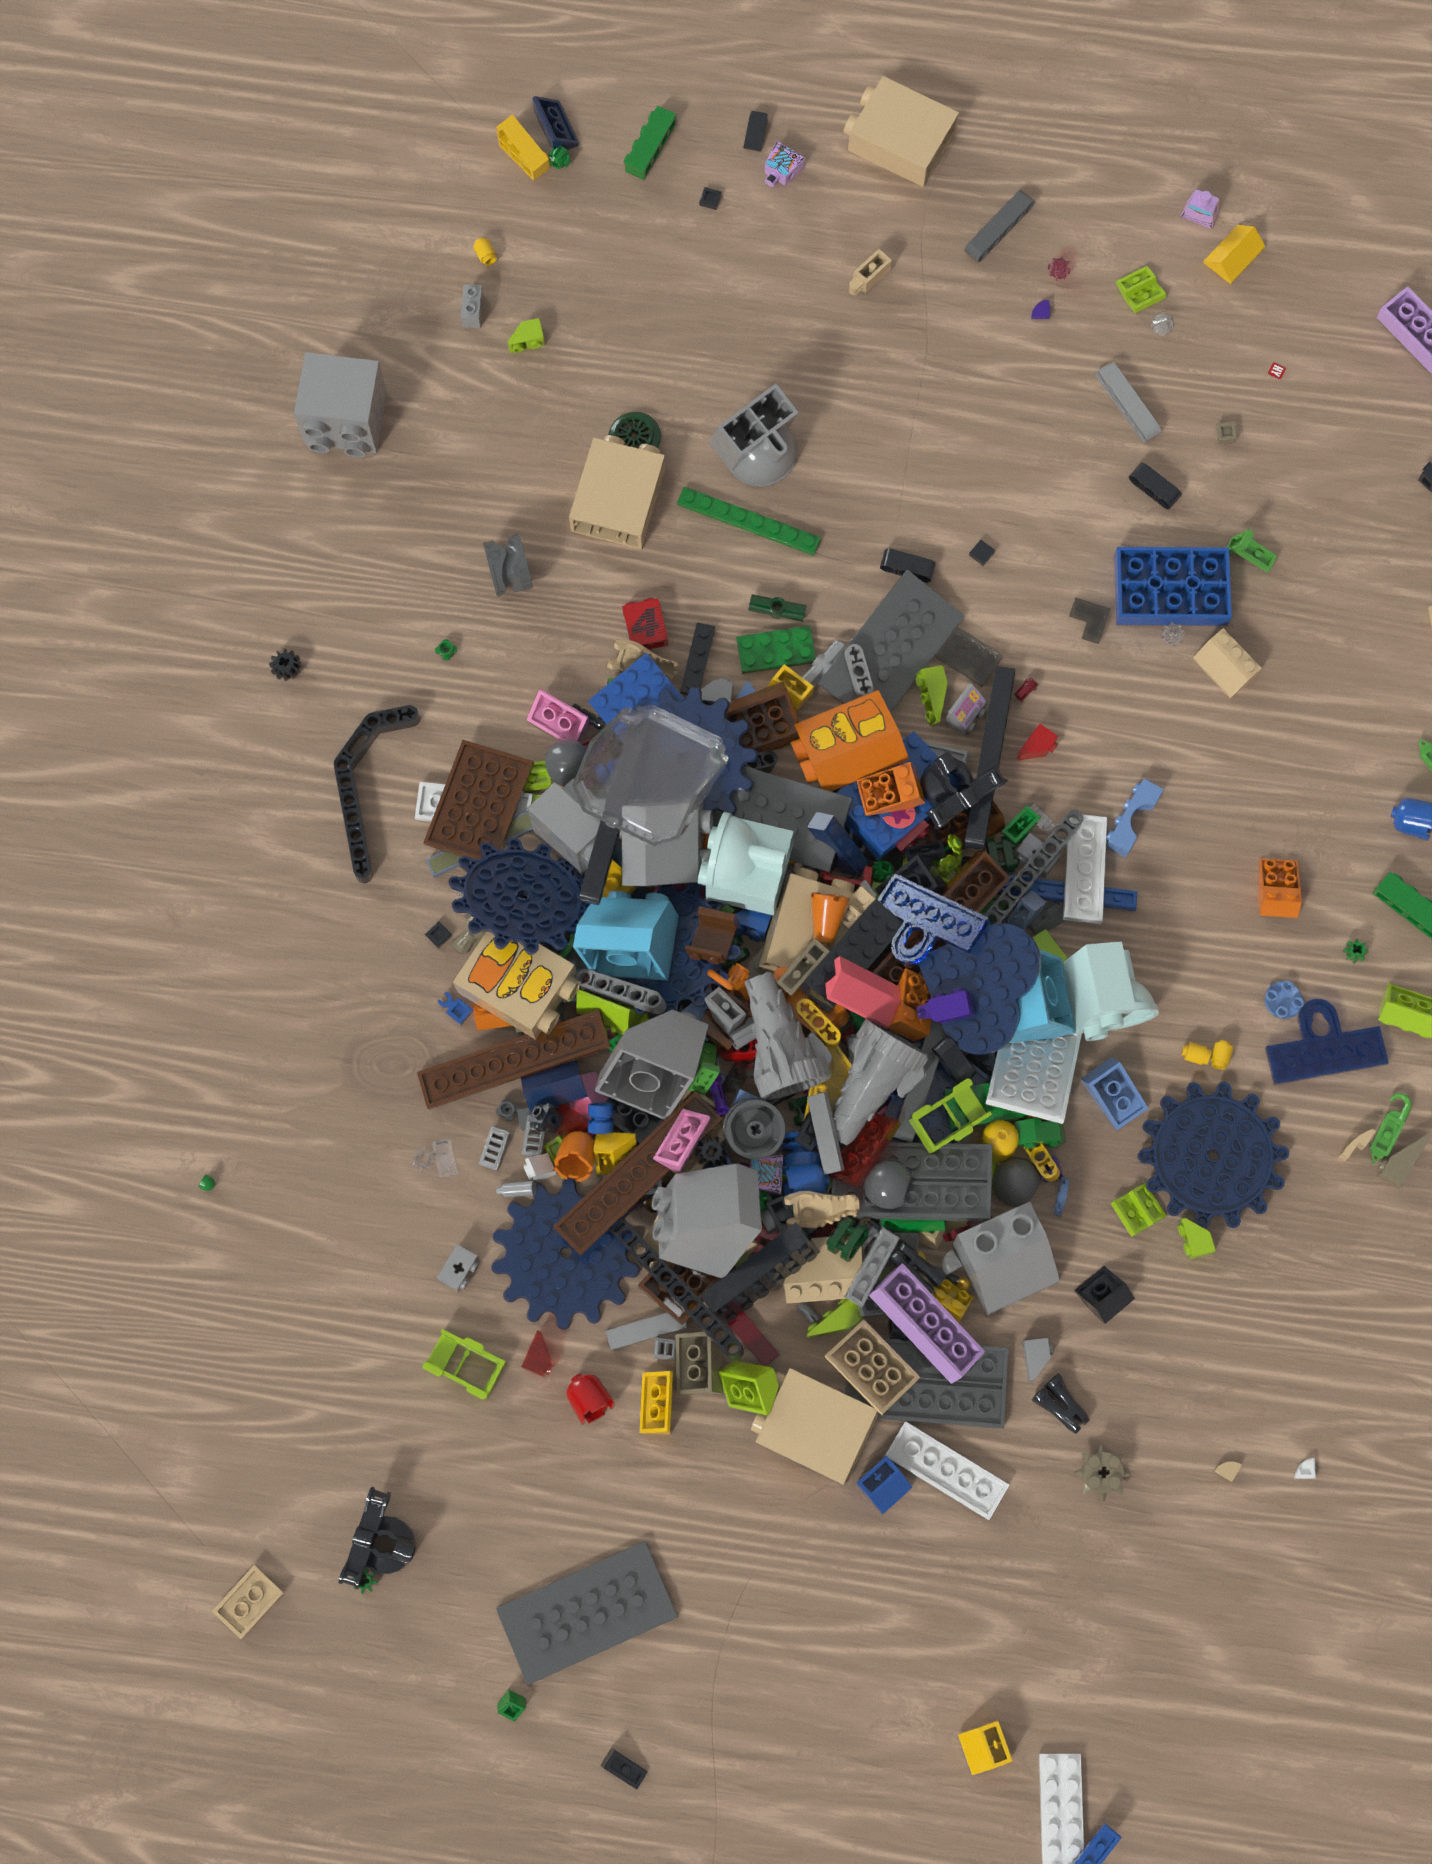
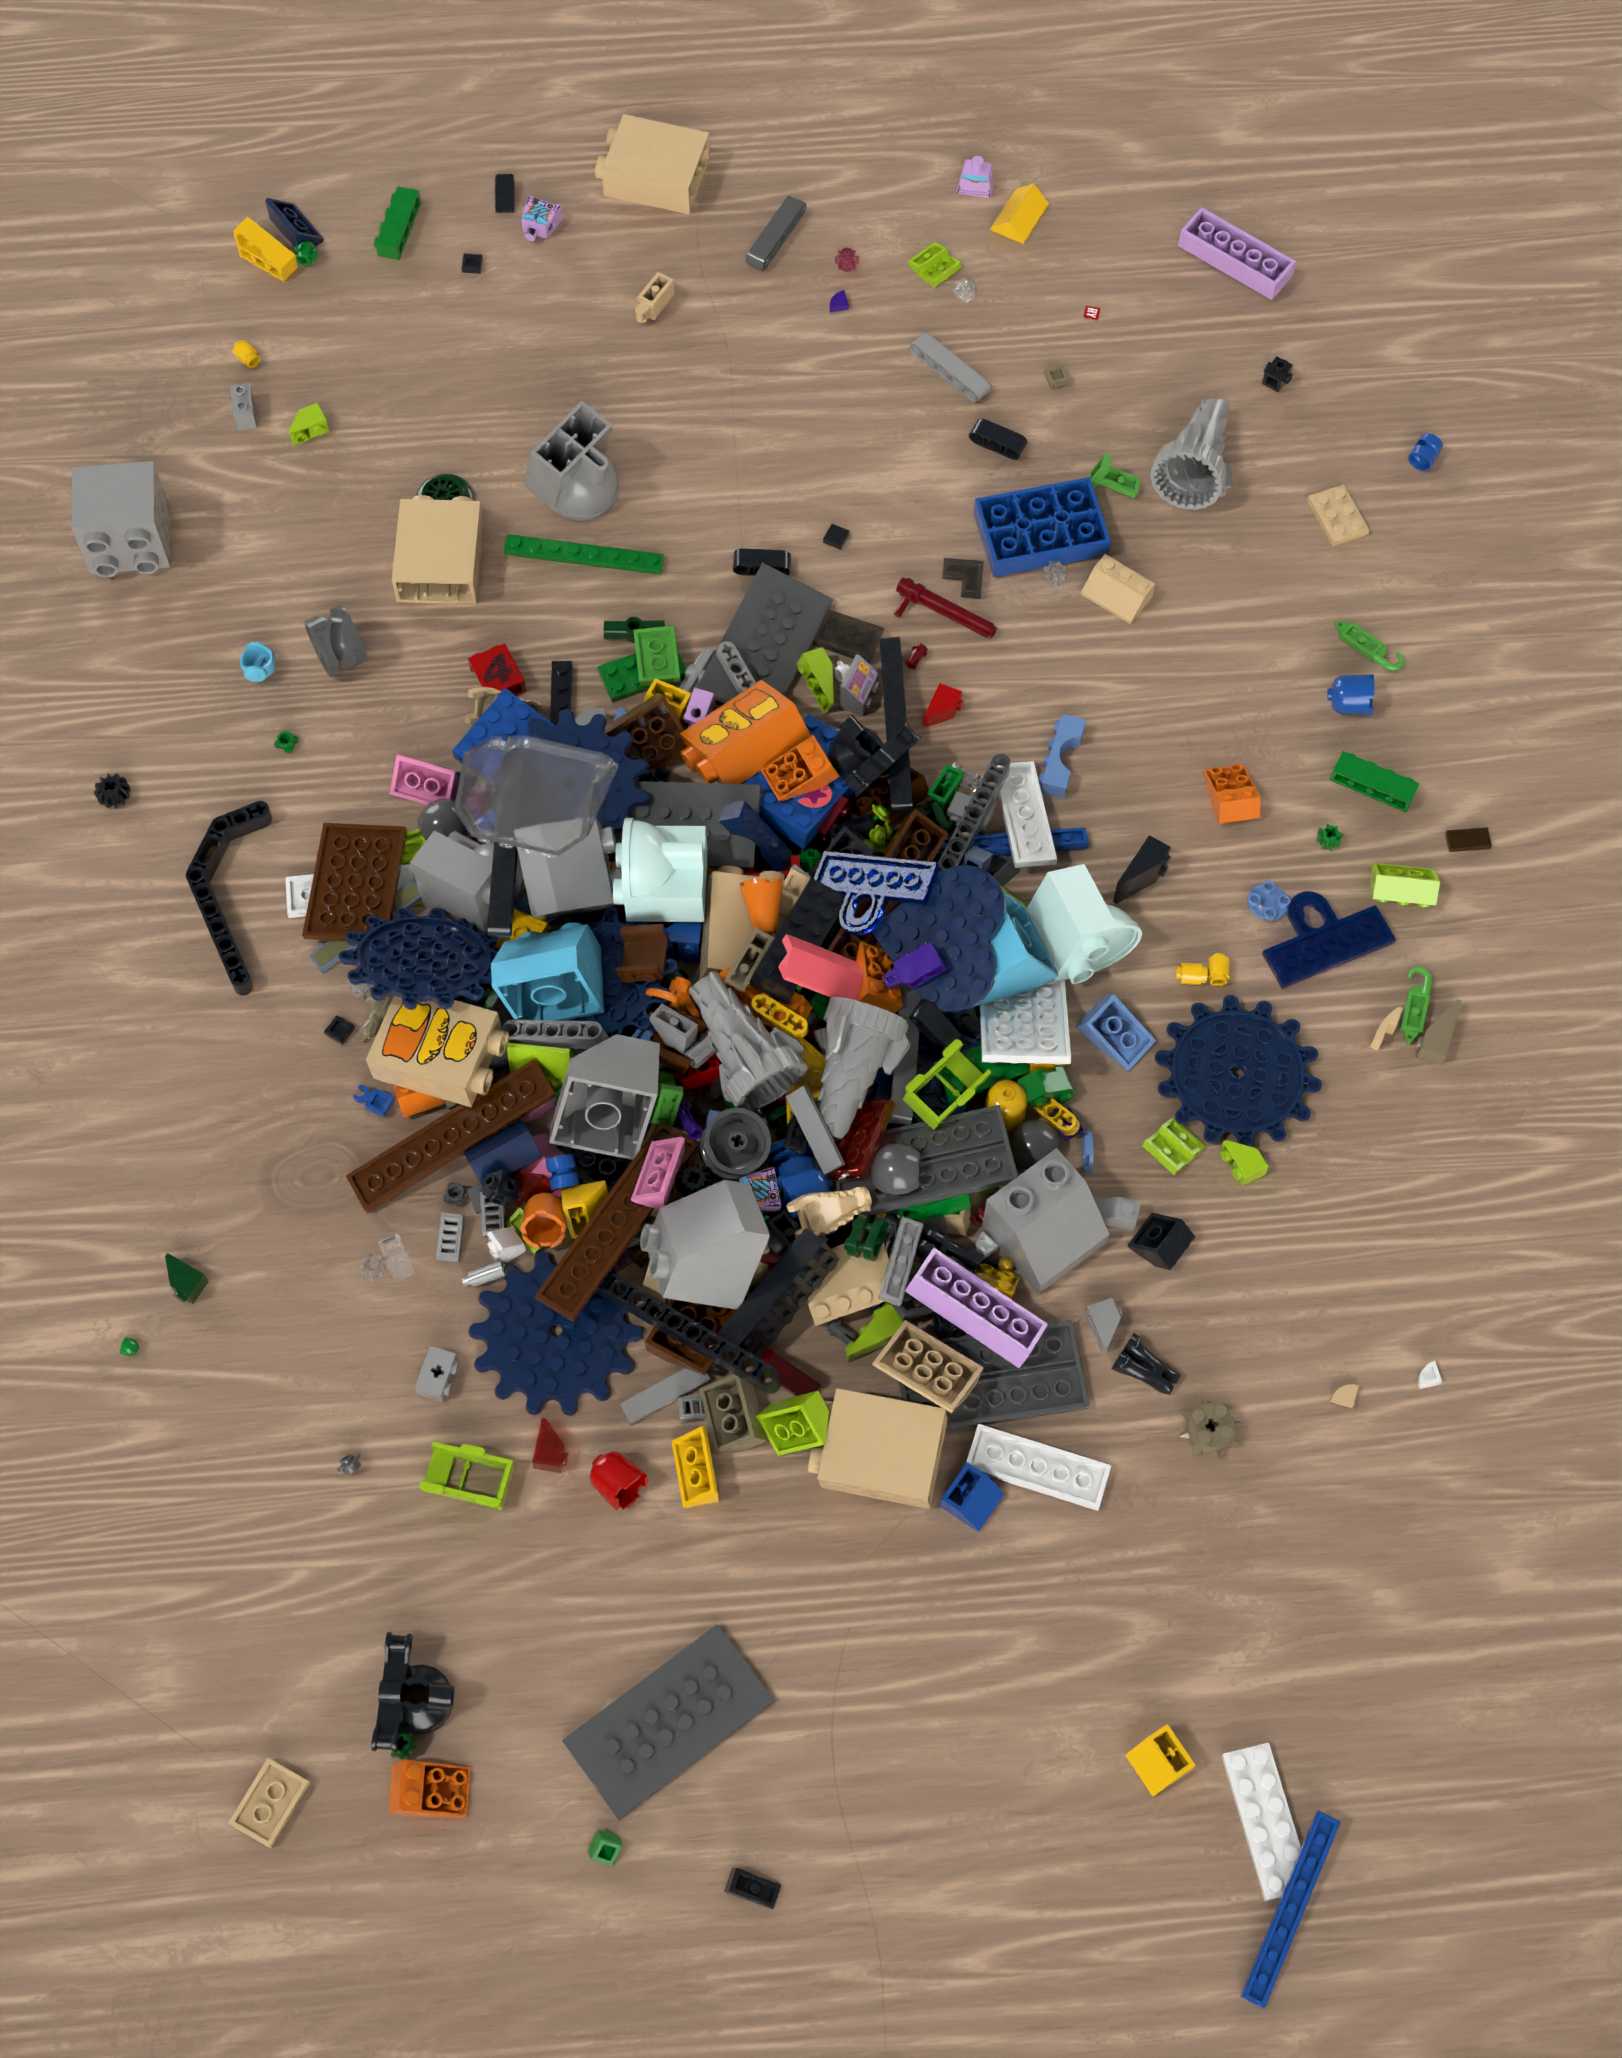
camera: 15 degrees left, 10 degrees down
(263, 1135) = (184, 1279): none -> dark green slope
(369, 1330) = (349, 1464): none -> dark grey plate
(379, 1623) = (429, 1789): none -> orange slope
(435, 568) = (257, 662): none -> medium azure hair
(791, 640) = (656, 655): none -> bright green plate
(820, 699) = (699, 706): none -> lavender torso
(955, 690) = (841, 671): none -> white plate
(1043, 628) = (919, 594): none -> dark red cylinder
(1072, 1260) = (1119, 1212): none -> light grey slope
(1183, 943) = (1144, 869): none -> black slope
(1327, 559) = (1191, 468): none -> light grey cone

